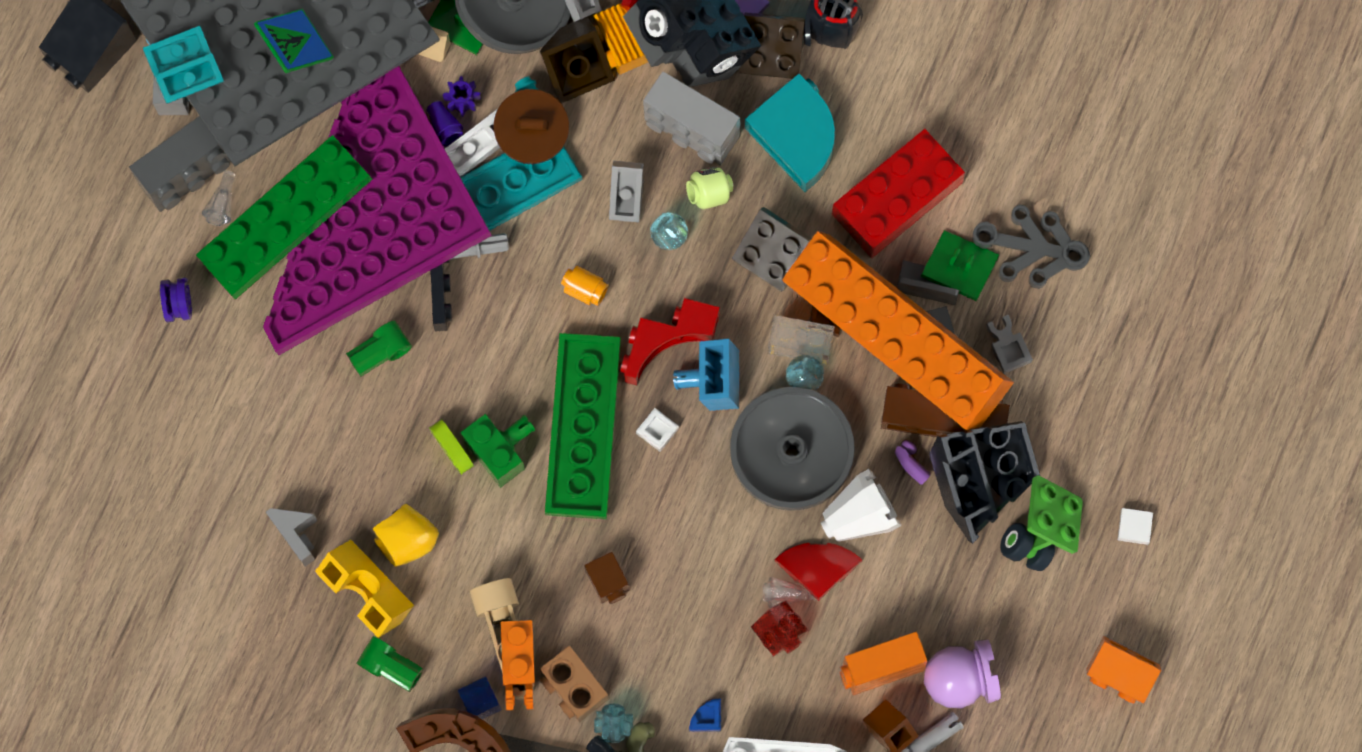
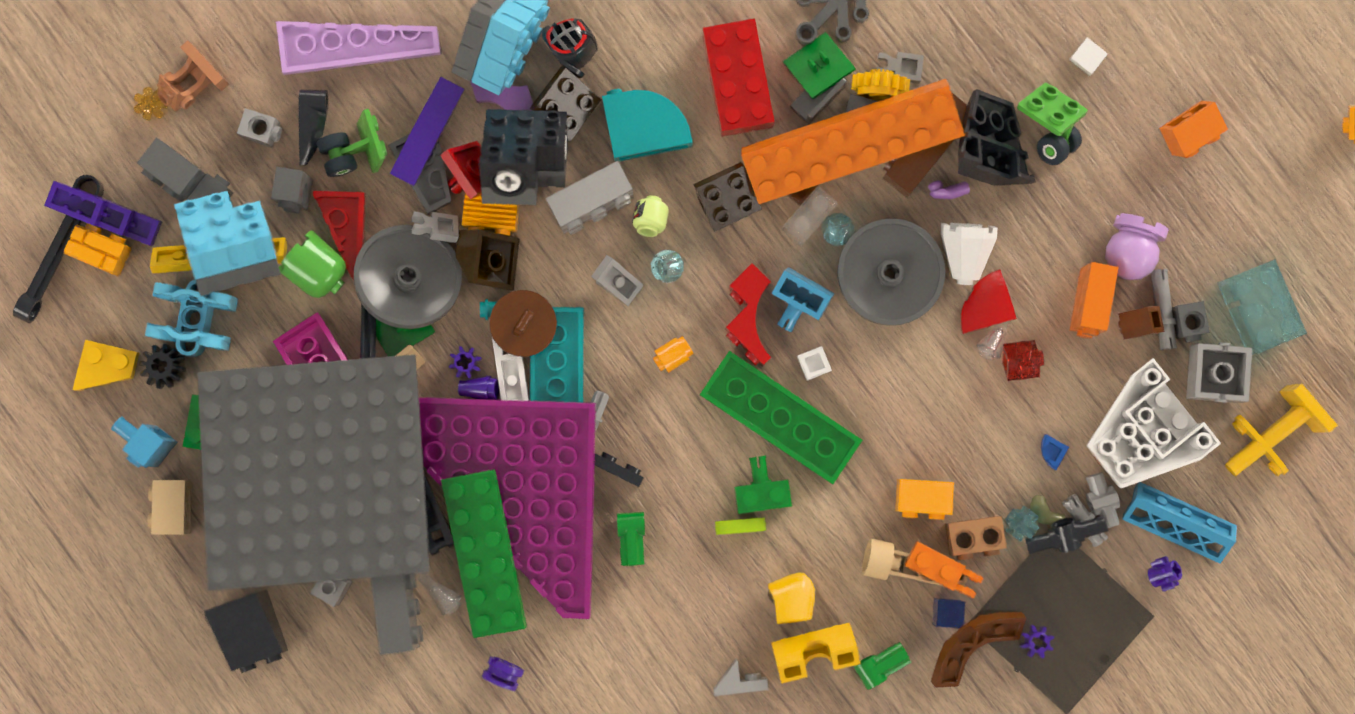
camera: 65 degrees left, 10 degrees up
(183, 64) = (325, 568): teal slope -> none
(291, 149) = (436, 521): none -> black plate
(293, 40) = (356, 470): piece -> none
(582, 608) = (924, 497): none -> light orange brick
(607, 578) = (910, 465): reddish brown brick -> none
(973, 328) = (879, 85): none -> yellow gear

